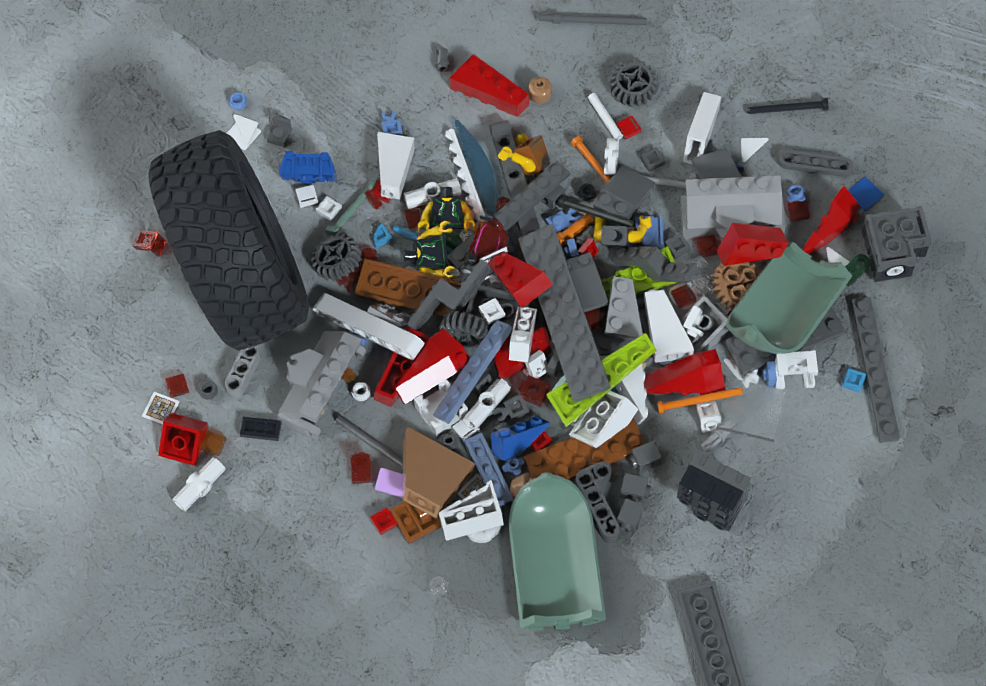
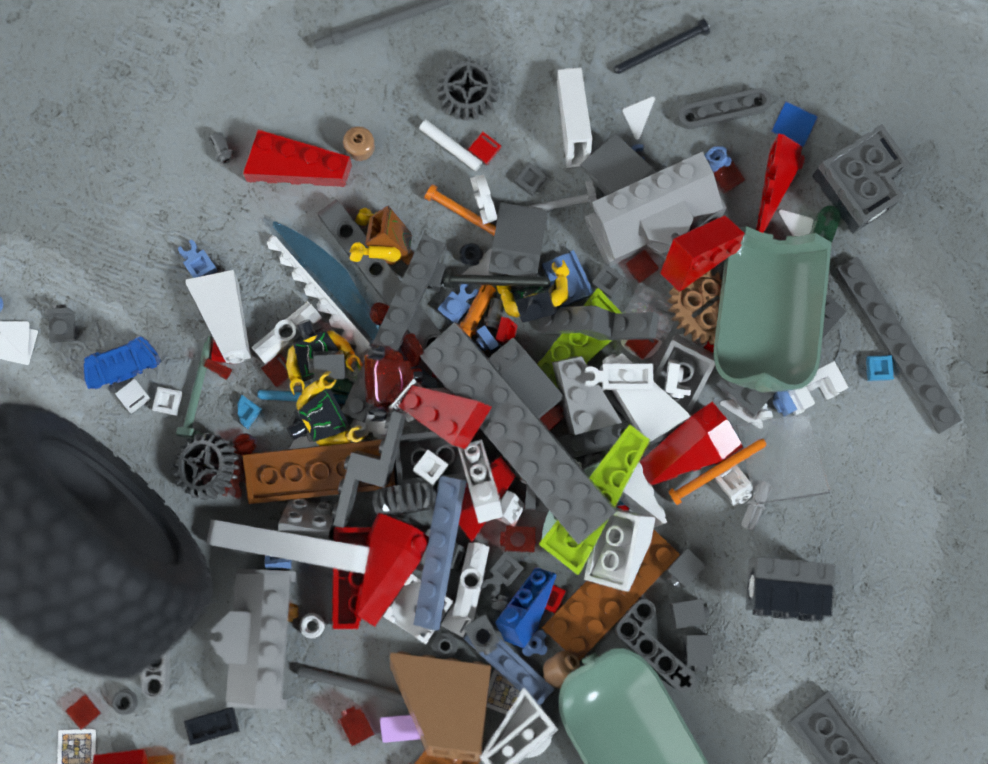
camera: 30 degrees left, 15 degrees up
(456, 219) = (327, 361): none -> dark grey brick
(478, 431) = (482, 623): none -> dark grey brick
(514, 234) = (412, 349): none -> clear red tile
(655, 302) = (622, 376): none -> white plate

